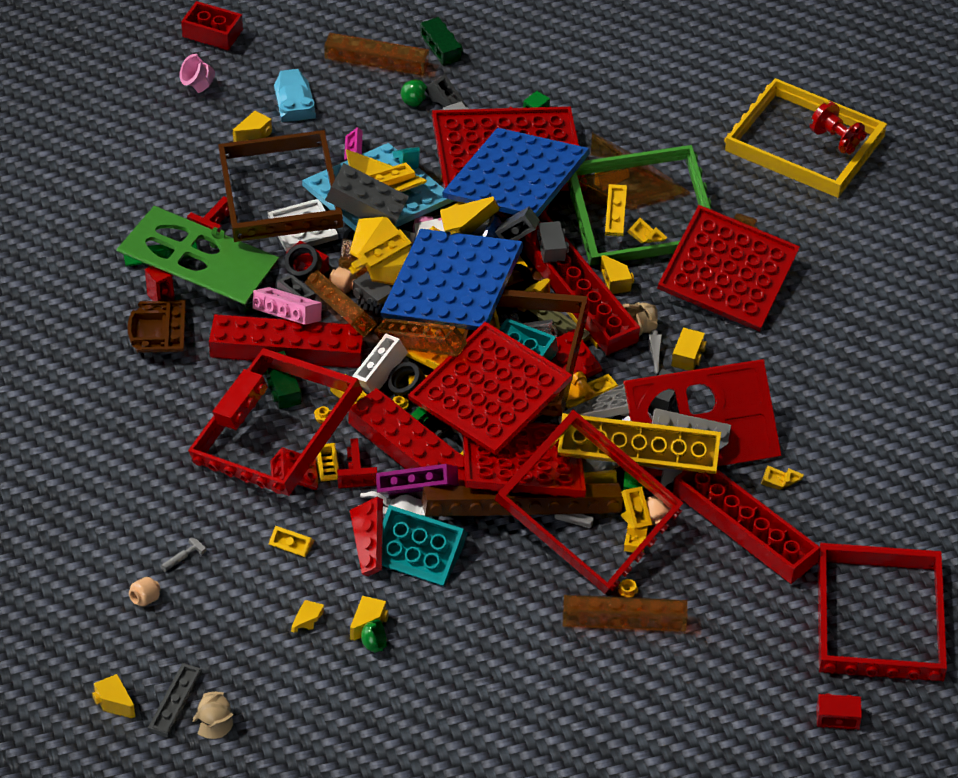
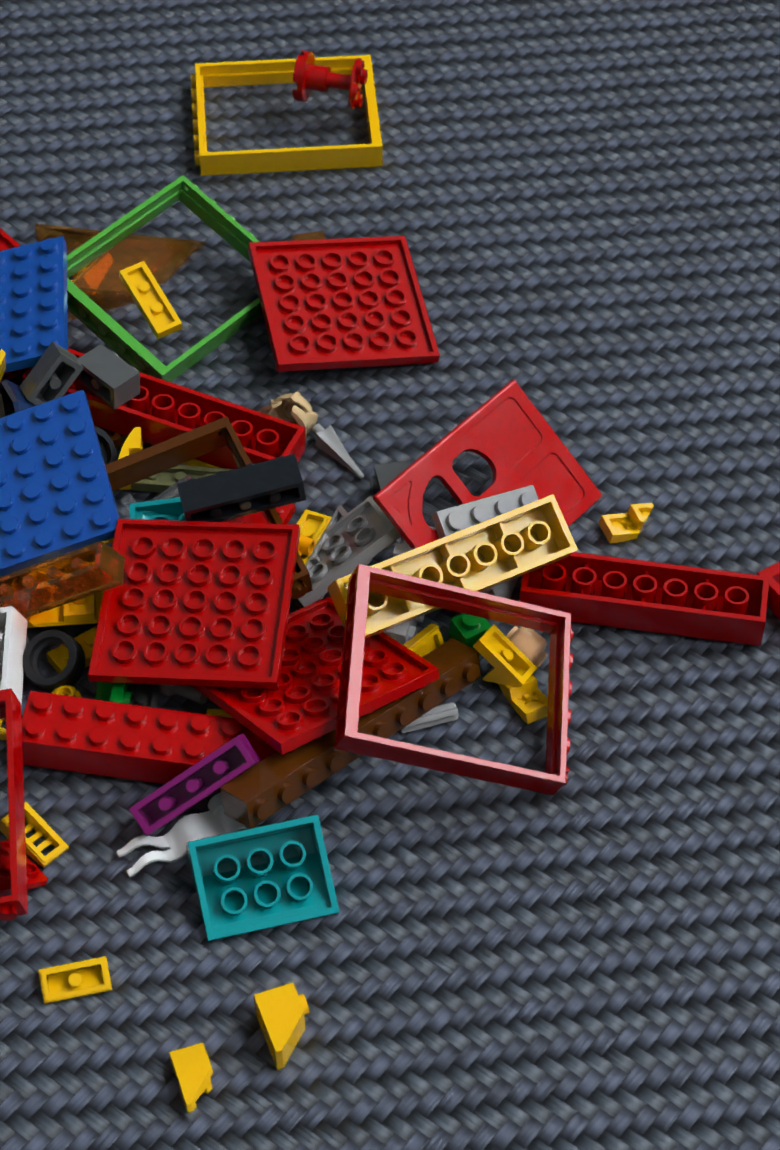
camera: 35 degrees left, 0 degrees up
(355, 475) = (87, 828): red bracket -> none
(368, 528) = (181, 900): red wing -> none
(374, 636) = (314, 1045): green hair -> none
(558, 341) = (242, 490): none -> black brick
(616, 275) = (207, 379): yellow slope -> none
(625, 613) = (608, 804): clear orange brick -> none
(628, 588) = (580, 763): yellow plate -> none
(644, 233) = (207, 312): yellow slope -> none
(688, 349) = (378, 426): yellow brick -> none

